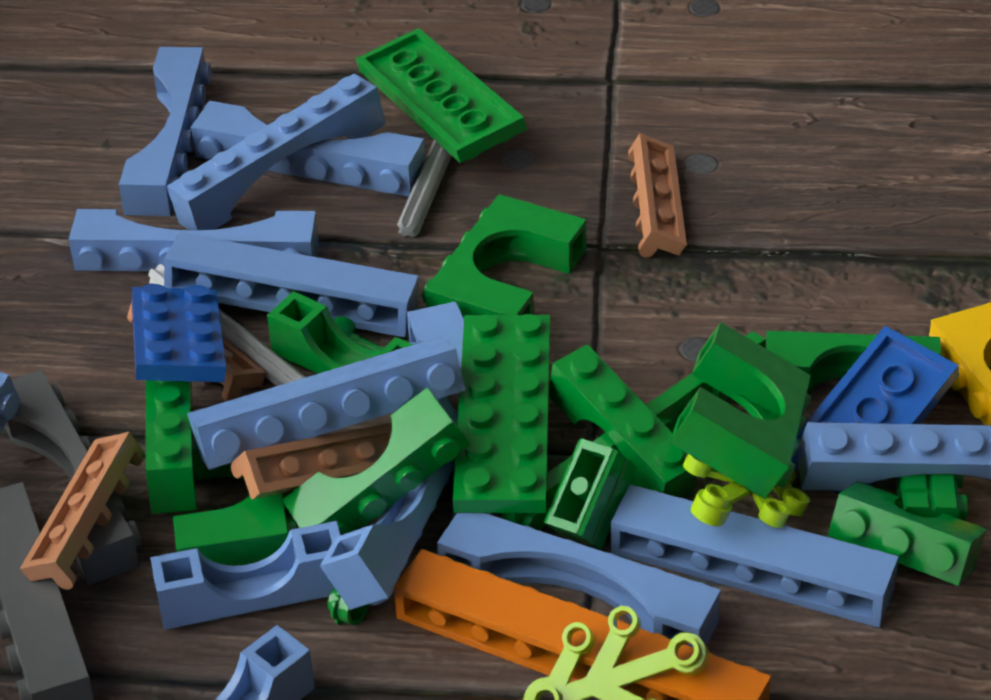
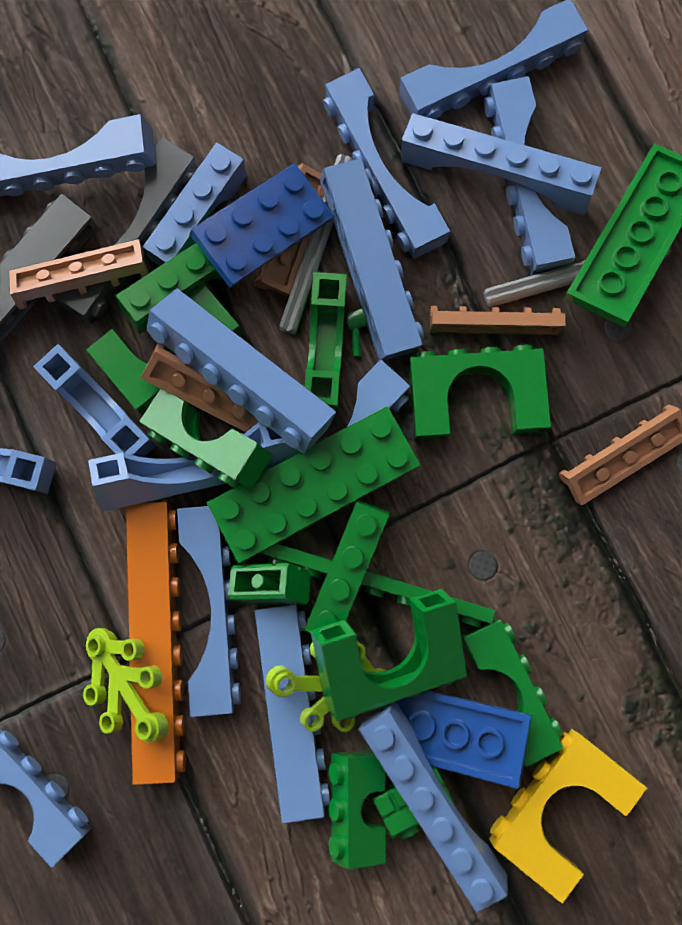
camera: 60 degrees right, 40 degrees up
(90, 381) = (210, 185): none -> medium blue arch
(442, 225) = (496, 322): none -> nougat hinge

